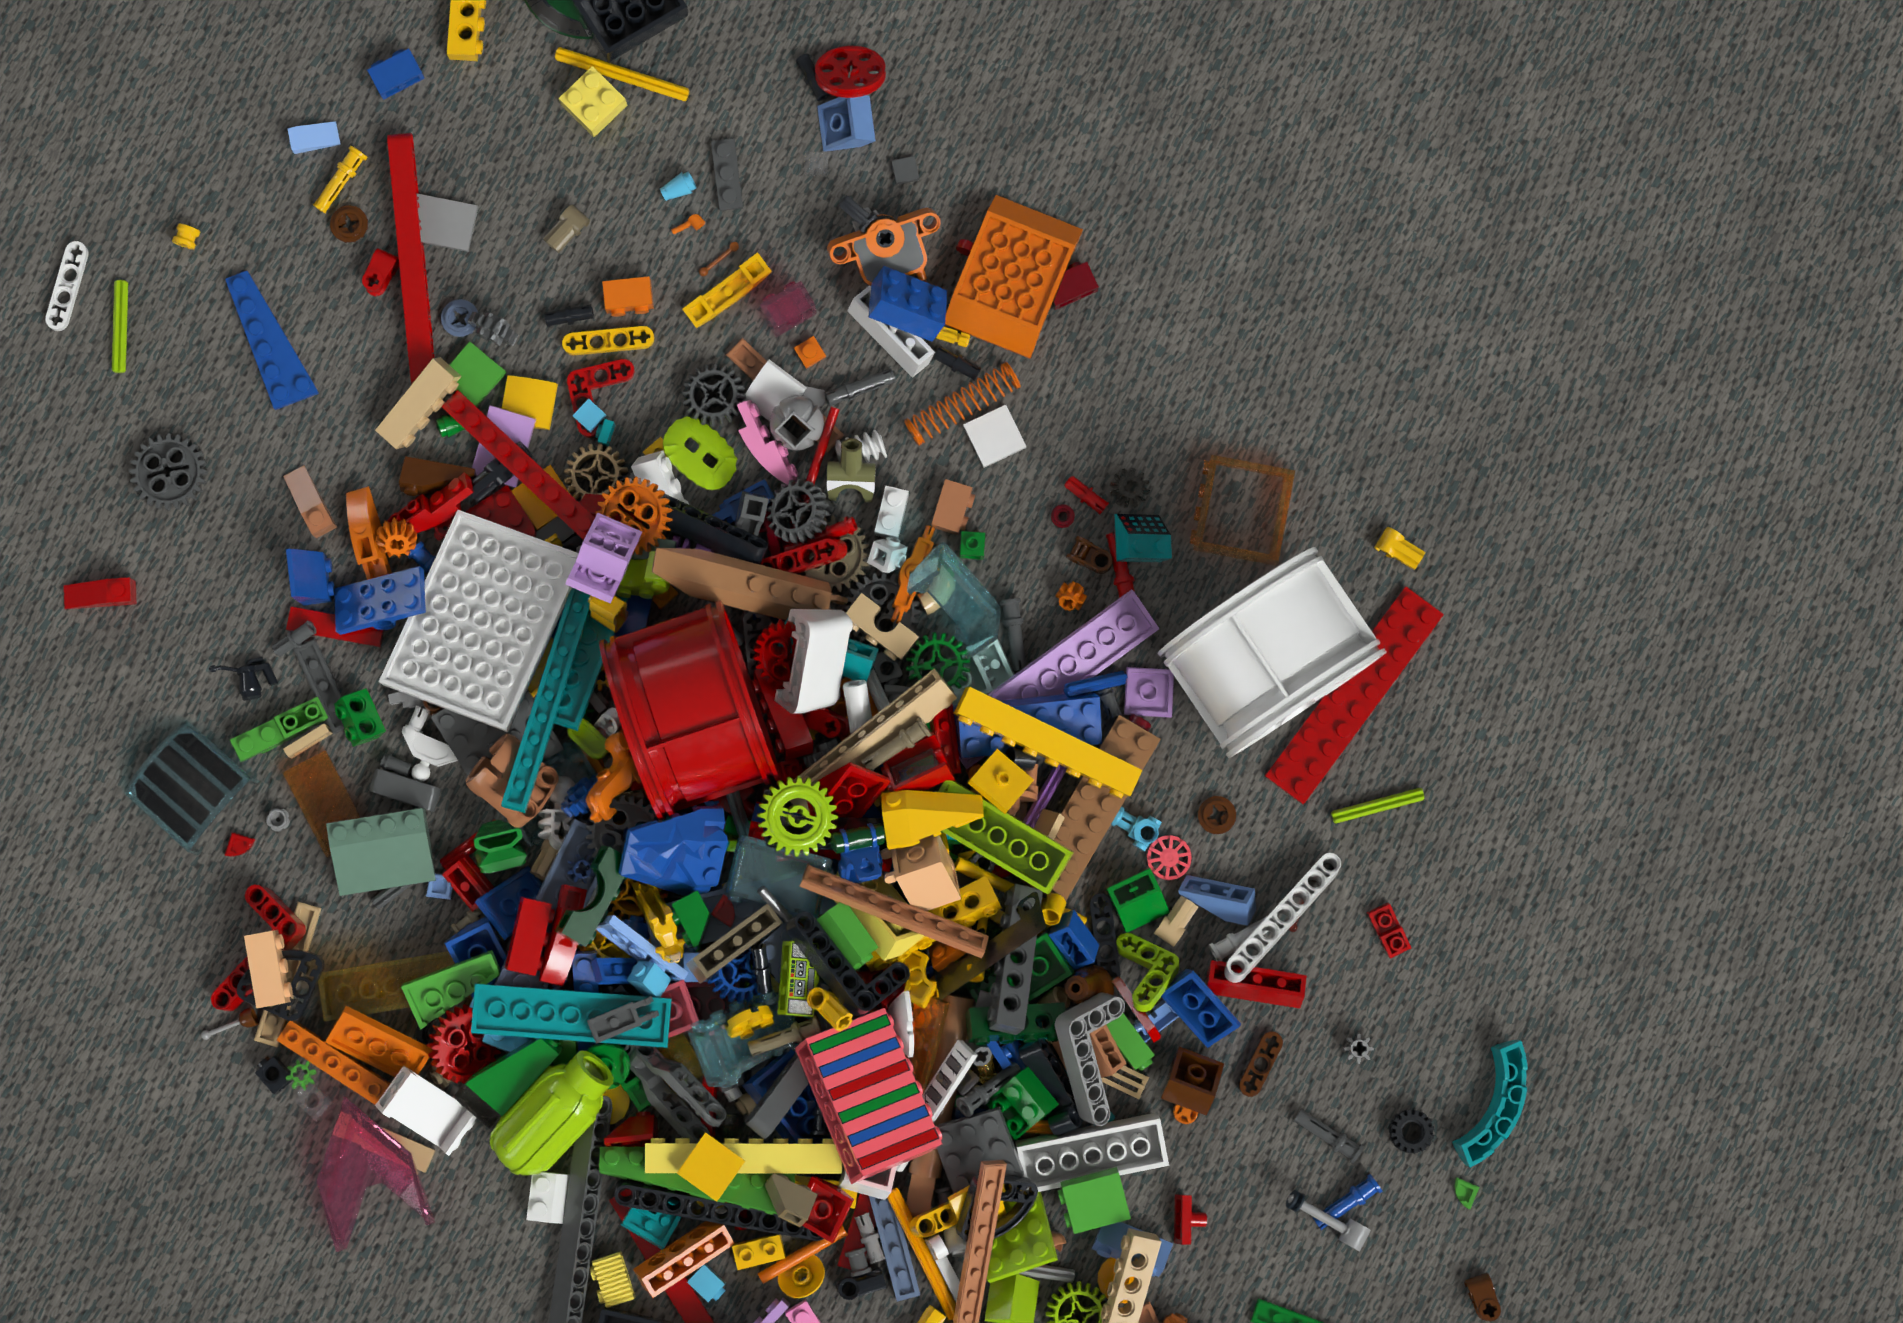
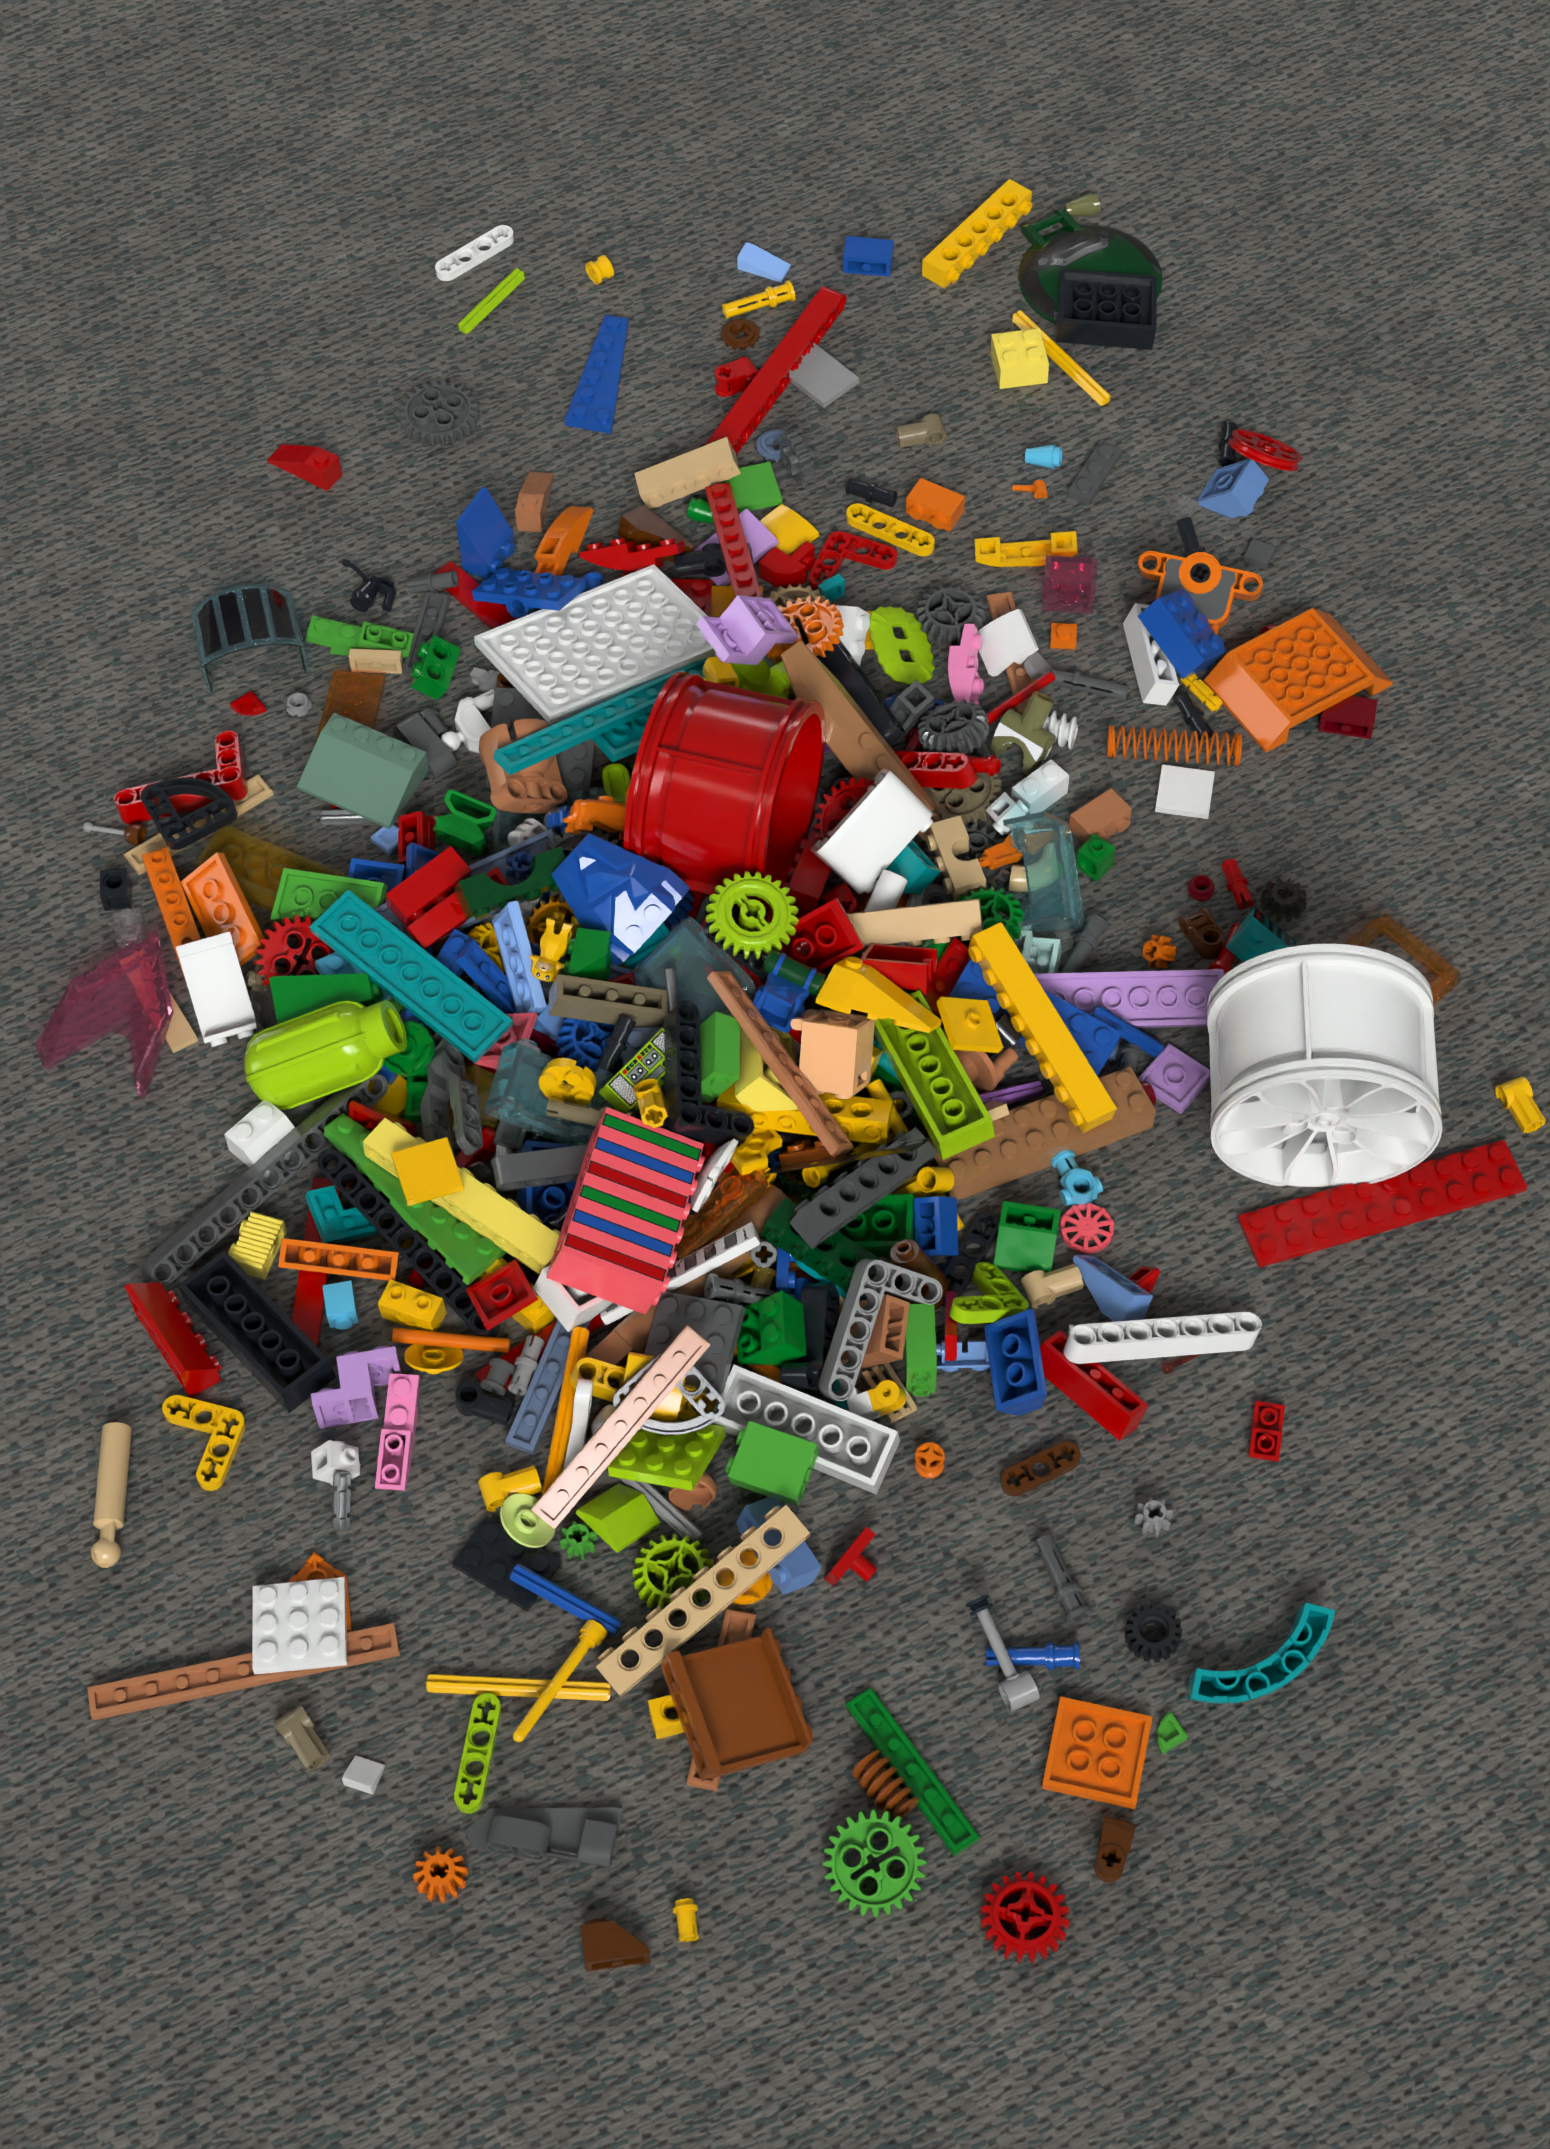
camera: 40 degrees right, 25 degrees down
(268, 968) = (183, 782): light nougat brick -> none
(307, 1077) = (136, 893): bright green gear -> none
(396, 538) = (583, 562): orange gear -> none
(558, 439) = (781, 569): none -> red brick
(589, 415) = (826, 566): medium azure tile -> none
(619, 1020) = (452, 1001): dark grey hinge -> none
(649, 979) = (507, 993): medium azure brick -> none
(733, 247) = (1058, 526): dark orange hinge -> none
(789, 1199) = (478, 1256): dark tan slope -> none
(806, 413) = (1014, 679): light grey piece -> none
(906, 738) = (906, 935): dark tan pin -> none
(1124, 1096) = (877, 1402): none -> yellow leg
(1192, 1081) = (957, 1427): reddish brown brick -> none
(1221, 804) = (1155, 1211): reddish brown gear -> none
(1232, 872) = (1145, 1277): none -> red slope
(1377, 805) = (1336, 1312): lime axle -> none
(1430, 1240) = (1097, 1752): none -> orange plate

